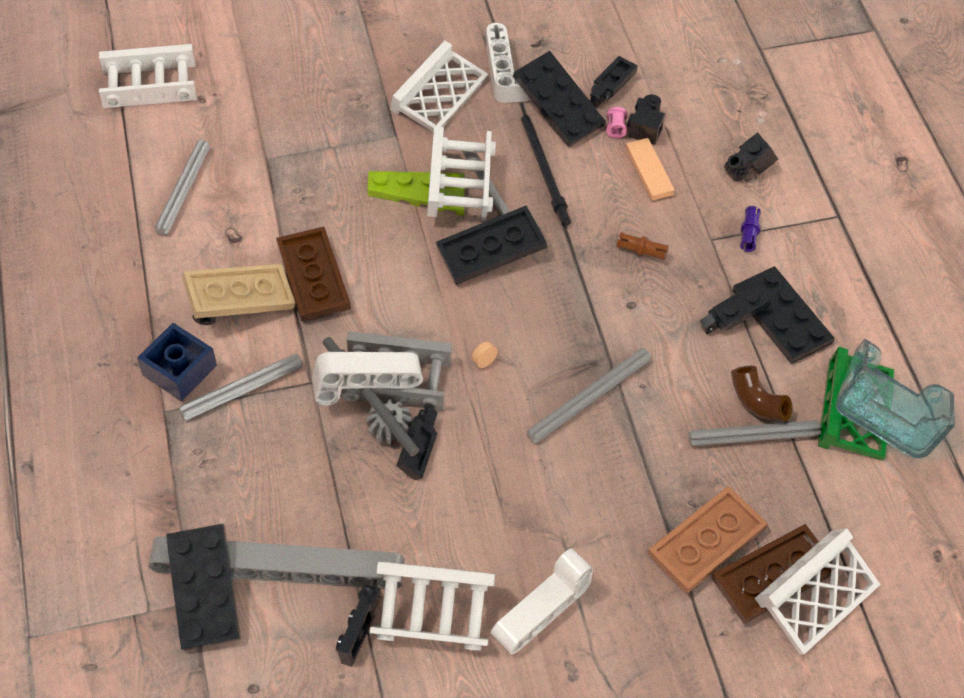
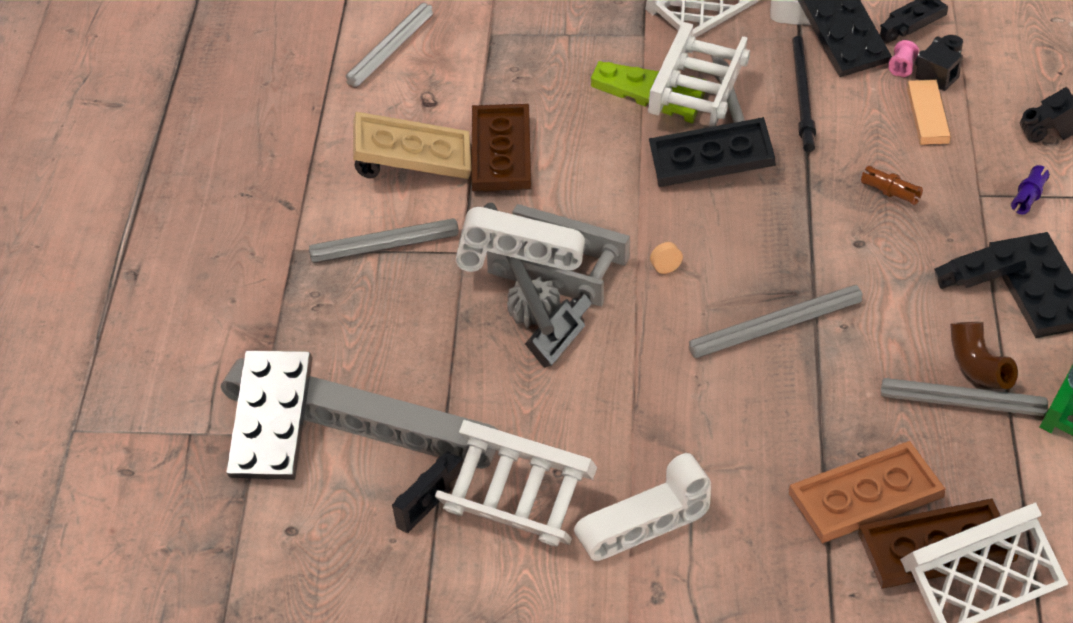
camera: 20 degrees right, 10 degrees down
(177, 361) = (321, 200): dark blue brick -> none

